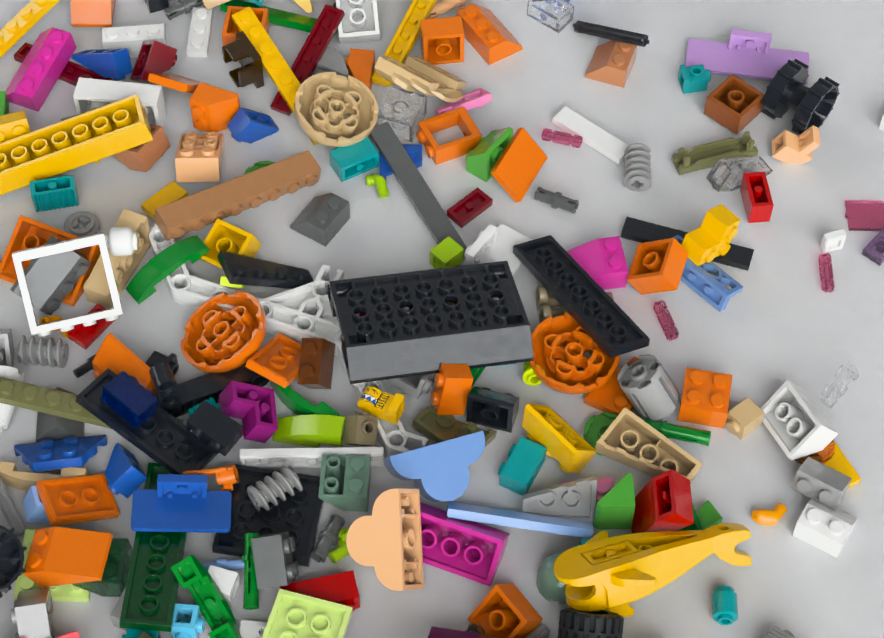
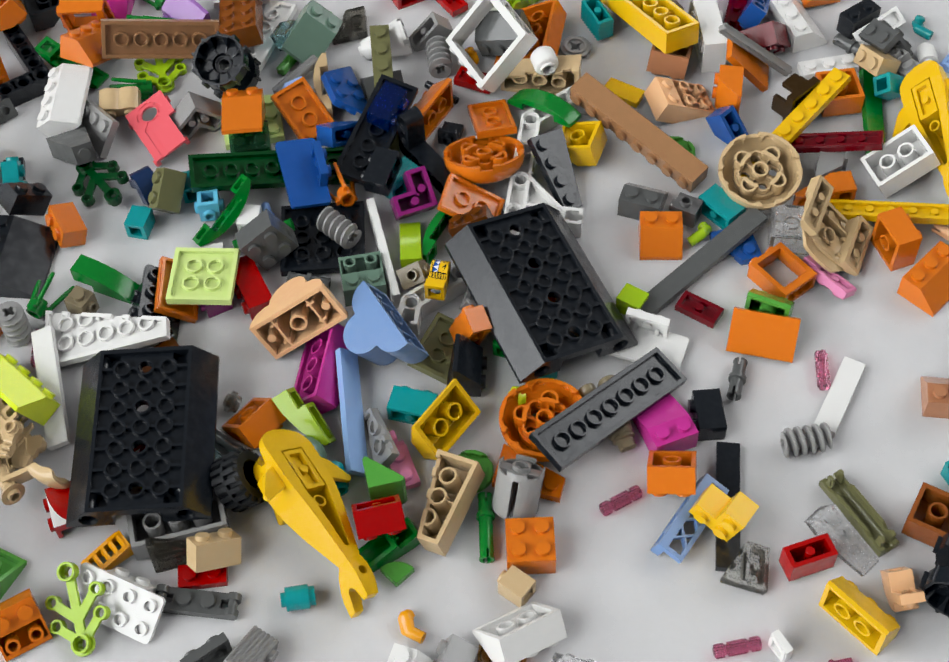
camera: 80 degrees right, 0 degrees up
(161, 320) = (492, 119): none -> orange tile
(176, 69) = (755, 49): none -> light grey axle
(347, 184) = (690, 207): none -> flat silver brick
(372, 214) = (660, 235): none -> orange slope
(515, 564) = (303, 416): none -> lime slope
(589, 227) = (708, 414): none -> black brick
(757, 242) = (749, 569): none -> clear smoke wing
(814, 180) = (859, 614): none -> yellow slope

